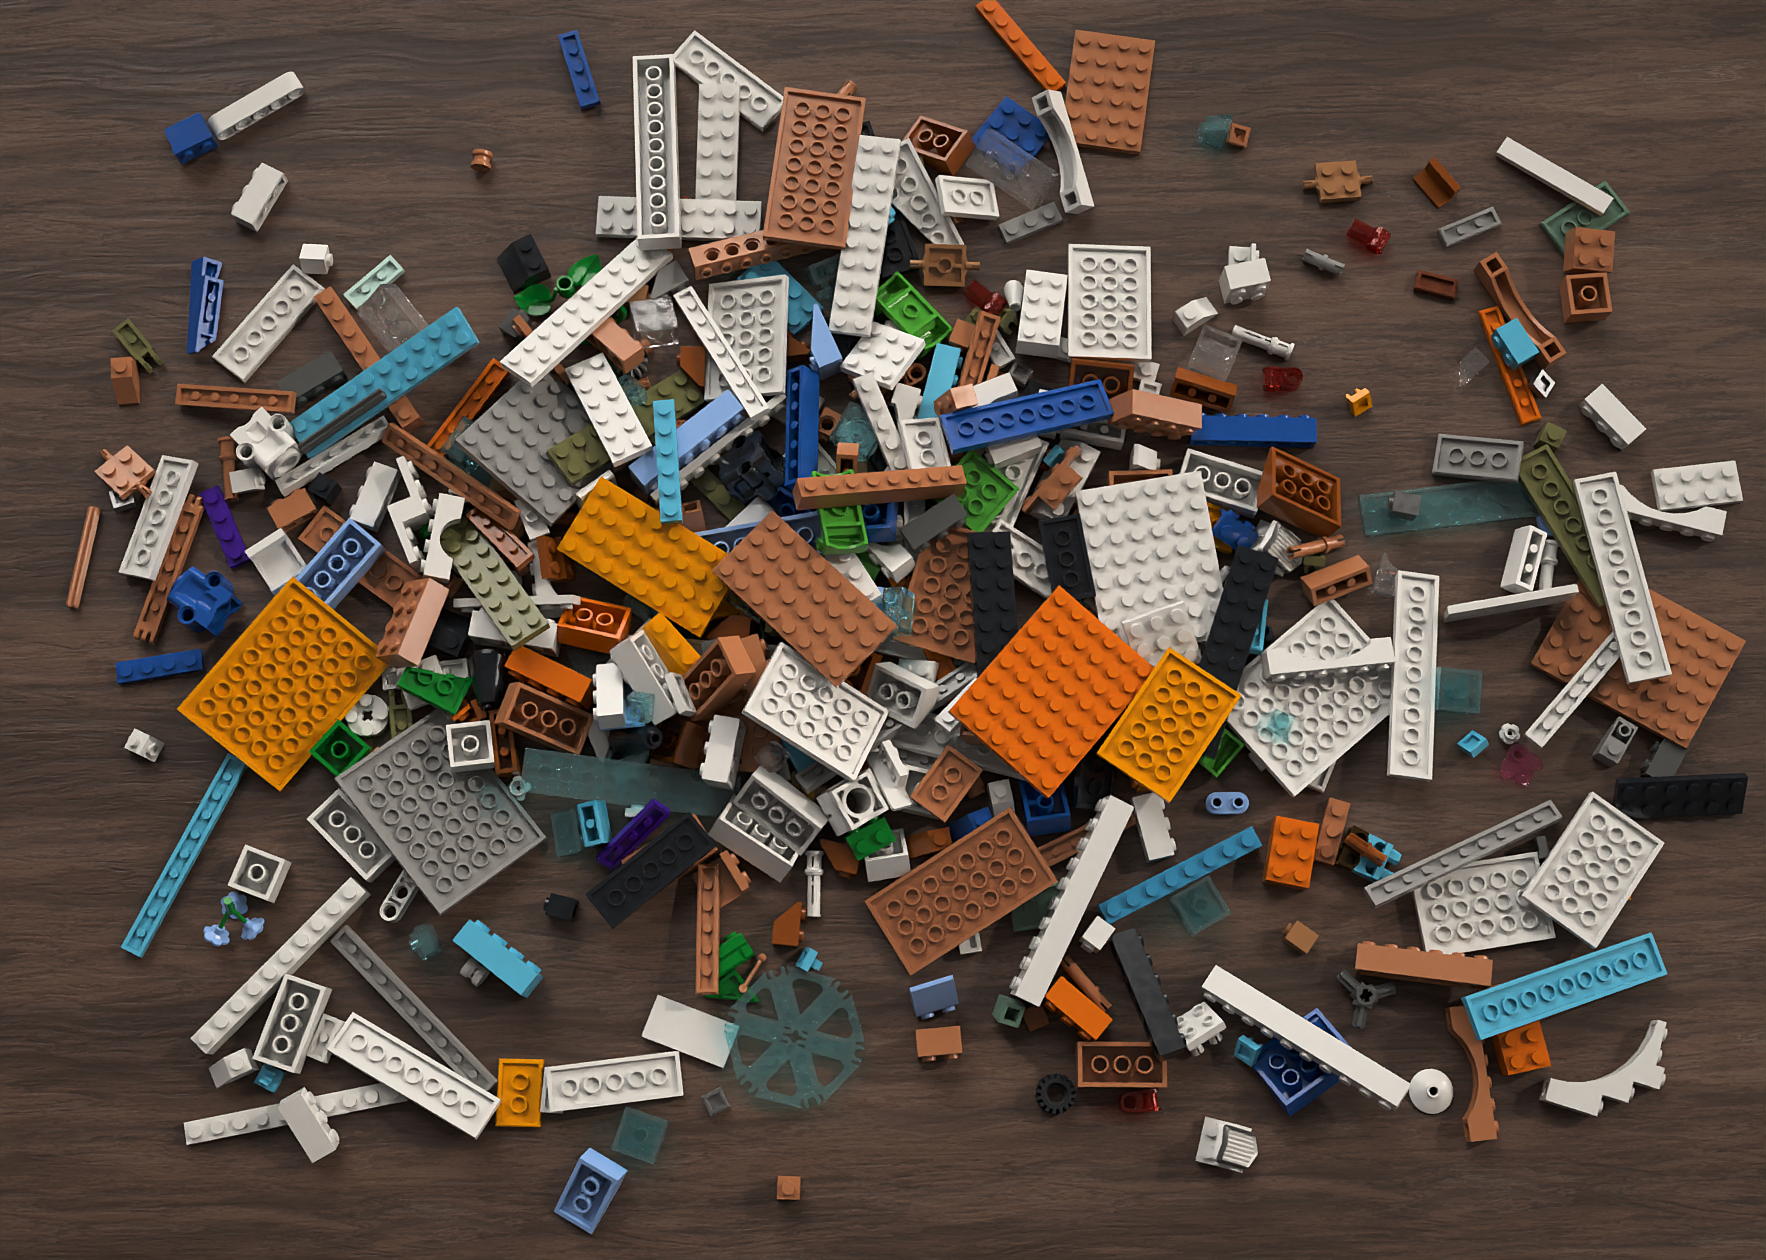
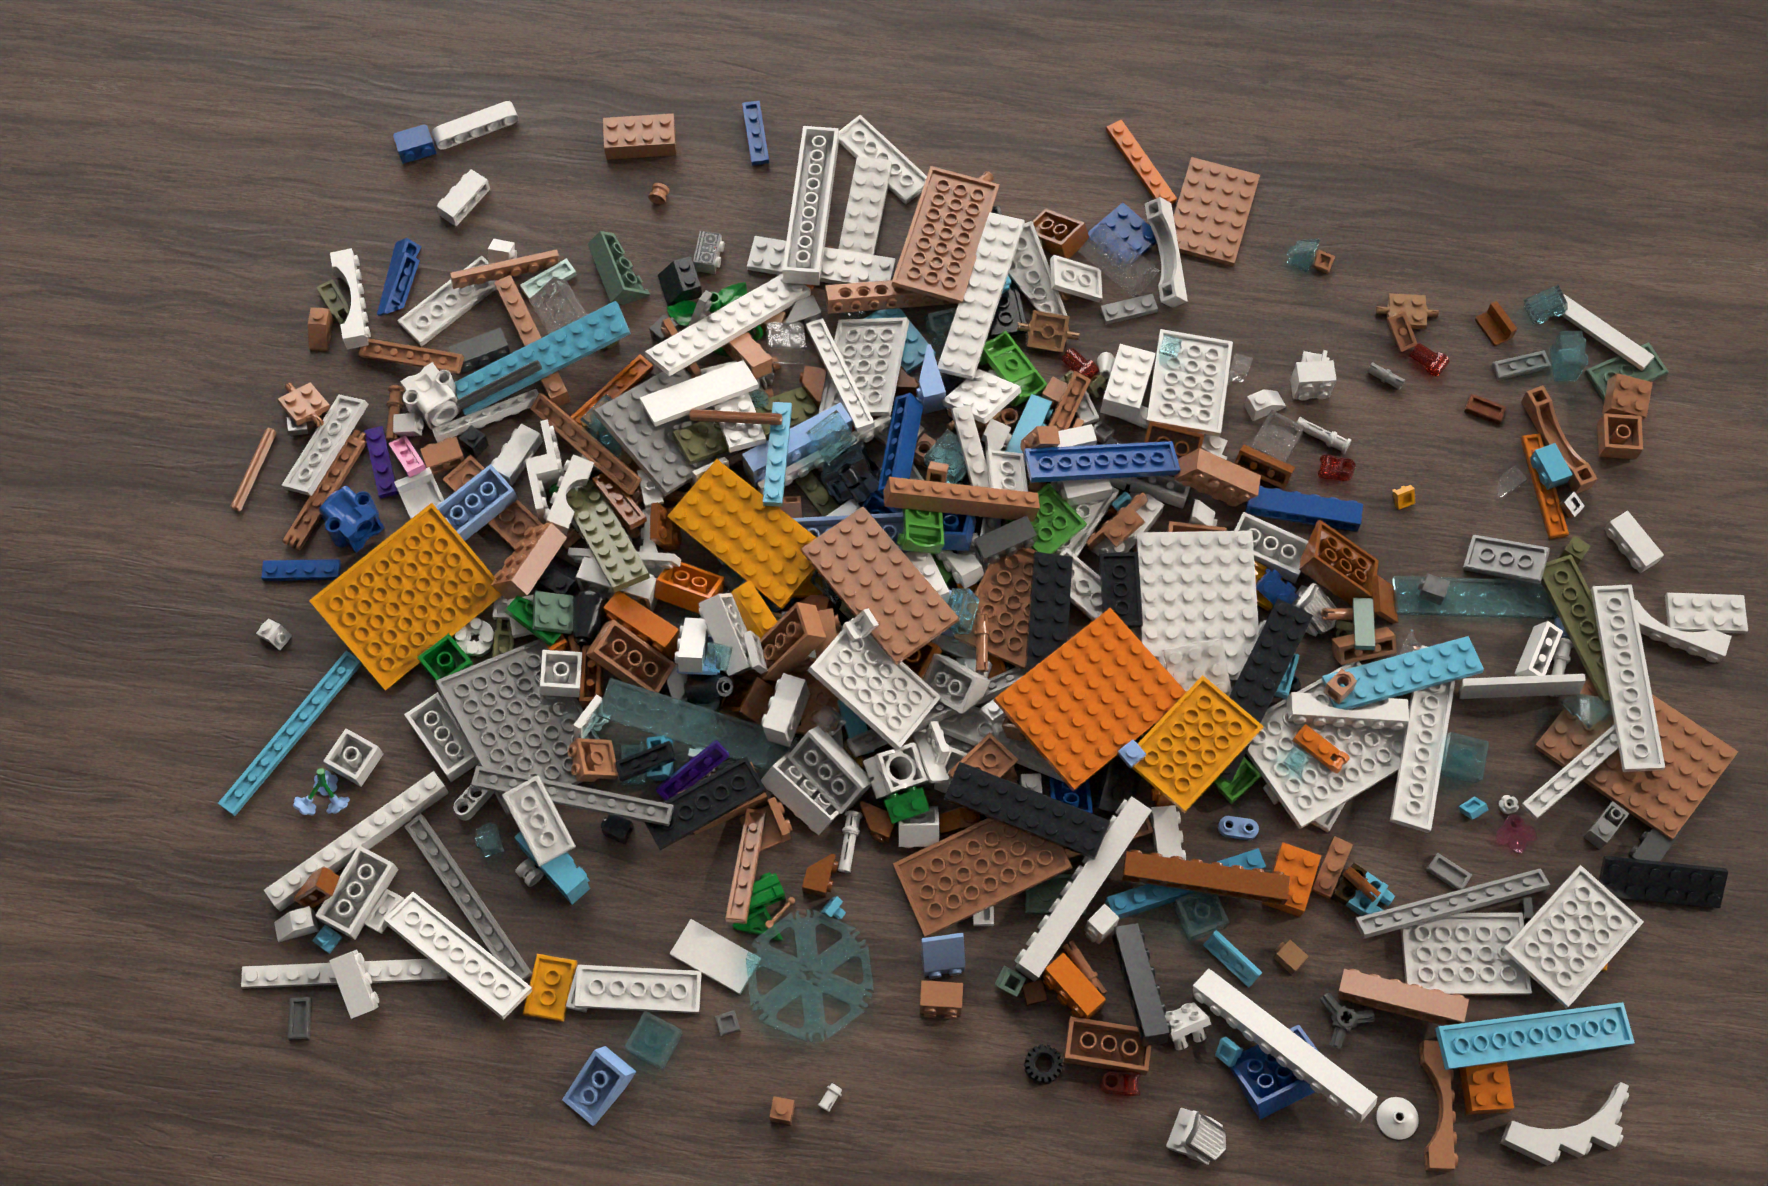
camera: 10 degrees right, 10 degrees down
(165, 377) = (354, 329): none -> white arch
(249, 1027) = (317, 888): none -> dark orange slope
(253, 518) = (407, 456): none -> bright pink plate
(257, 1168) = (299, 1018): none -> dark grey tile
(317, 281) = (503, 269): none -> nougat plate
(447, 93) = (639, 136): none -> nougat brick
(448, 260) = (616, 270): none -> sand green wedge
(449, 678) = (552, 612): none -> sand green plate
(476, 920) = (538, 820): none -> white tile
(507, 886) = (579, 796): none -> light grey plate
(508, 795) = (587, 718): none -> white plate
(522, 838) = (592, 759): none -> nougat plate
(548, 224) = (707, 252): none -> brick
(555, 295) = (702, 305): none -> light grey plate
(568, 401) = (699, 393): none -> white tile
(580, 831) = (645, 761): none -> black tile
(614, 426) = (736, 417): none -> nougat axle
(724, 431) = (831, 436): none -> clear light blue plate
(791, 652) = (861, 625): none -> white bracket
(837, 1164) = (830, 1097): none -> white pin
(924, 643) = (981, 642): none -> nougat pin
(1001, 827) = (1027, 810): none -> black plate
(1083, 264) = (1170, 346): none -> clear light blue plate
(1104, 747) = (1131, 753): none -> light blue plate
(1161, 276) = (1239, 368): none -> clear slope
(1200, 869) = (1206, 877): none -> dark orange brick
(1239, 948) = (1232, 958): none -> medium azure tile
(1304, 706) = (1321, 749): none -> orange plate
(1314, 642) = (1337, 692): none -> nougat brick
(1333, 558) = (1363, 624): none -> tile
(1334, 208) = (1401, 331): none -> nougat plate
(1351, 525) = (1384, 599): none -> dark orange tile
(1381, 607) = (1410, 672): none -> medium azure plate
(1454, 818) = (1449, 872): none -> light grey tile
(1489, 154) = (1545, 305): none -> clear light blue brick
(1520, 211) = (1568, 355): none -> clear light blue brick
(1582, 616) = (1587, 708): none -> clear light blue brick

